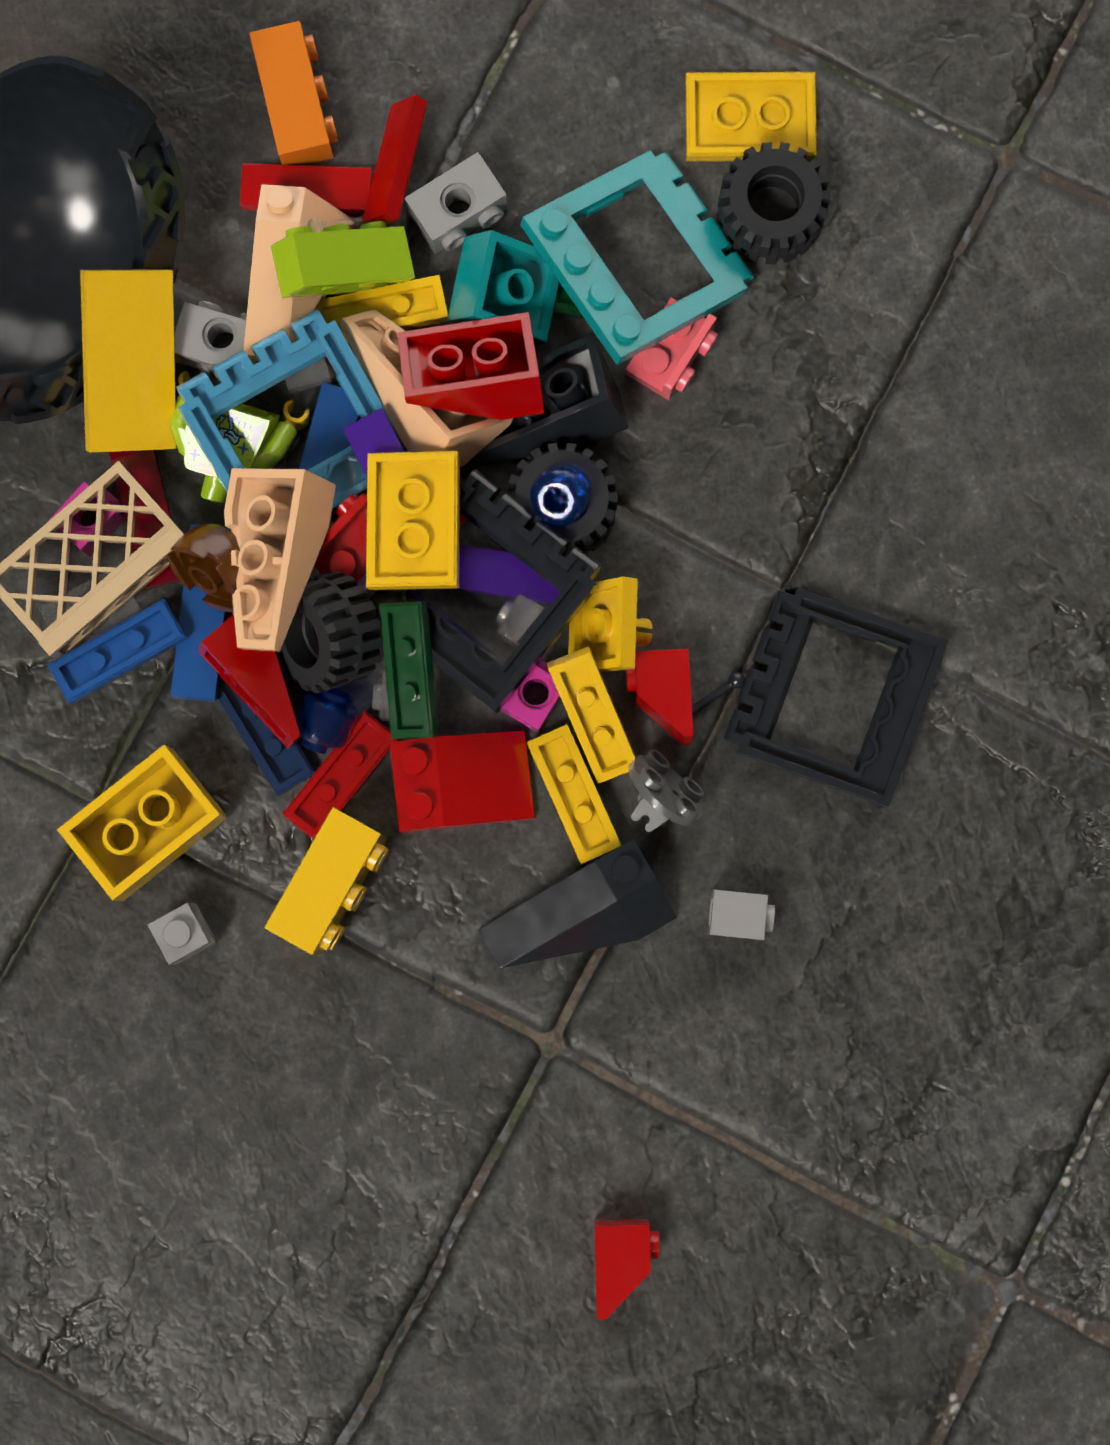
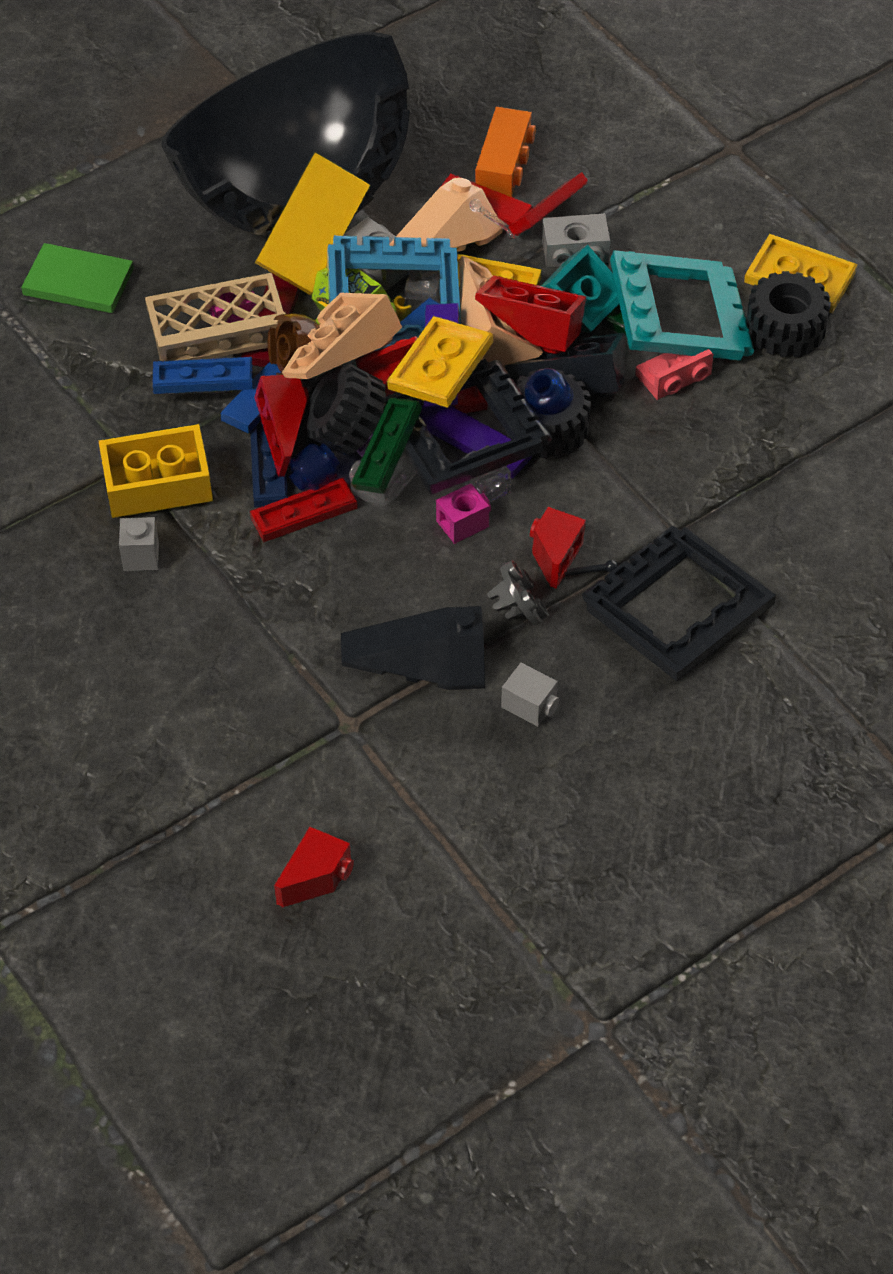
camera: 25 degrees right, 30 degrees down
(328, 884) = (255, 548): yellow brick -> none
(341, 259) = (480, 227): lime brick -> none
(461, 781) = (381, 539): red slope -> none
(574, 794) = (456, 571): yellow plate -> none
(592, 714) = (496, 528): yellow plate -> none
(610, 625) = (535, 488): yellow tile -> none

